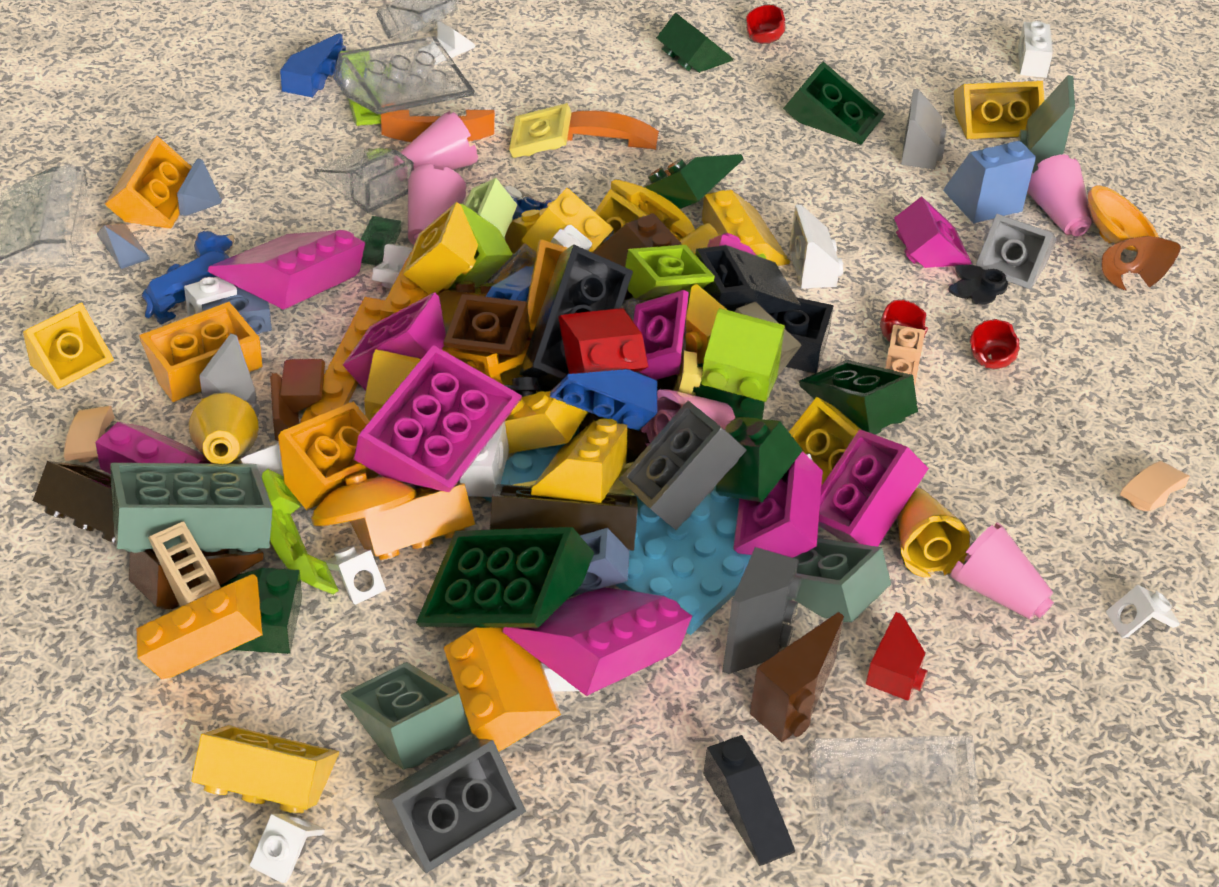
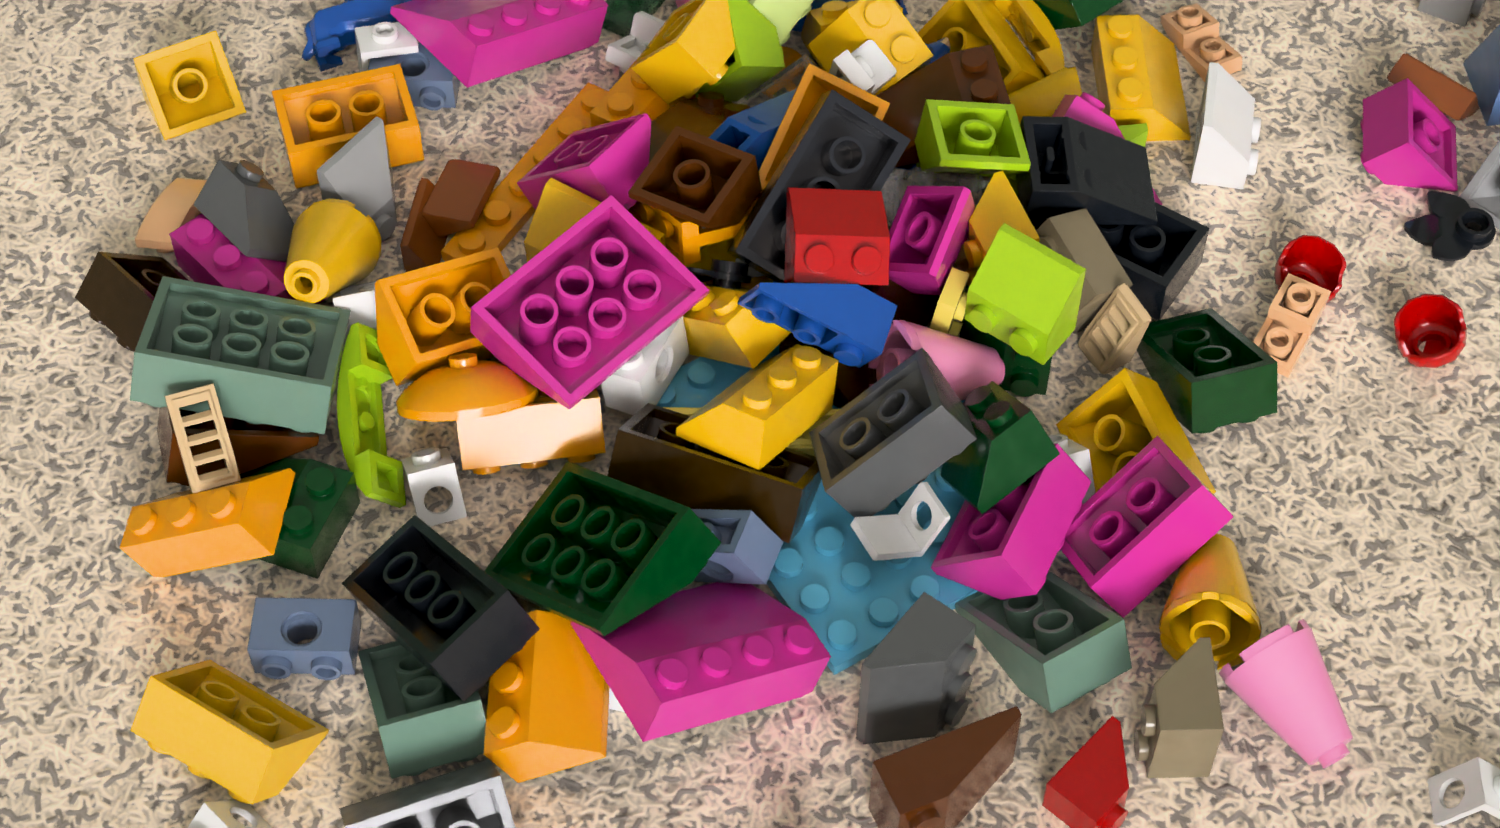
camera: 20 degrees right, 10 degrees up
(151, 414) = (246, 210): none -> dark grey slope
(300, 690) = (286, 621): none -> sand blue brick
(404, 639) = (441, 607): none -> black brick
(705, 531) = (900, 534): none -> white bracket
(770, 202) = (1199, 41): none -> light nougat slope
(795, 381) = (1115, 331): none -> tan slope
(944, 603) = (1182, 718): none -> dark tan slope
(948, 207) = (1441, 90): none -> dark orange slope

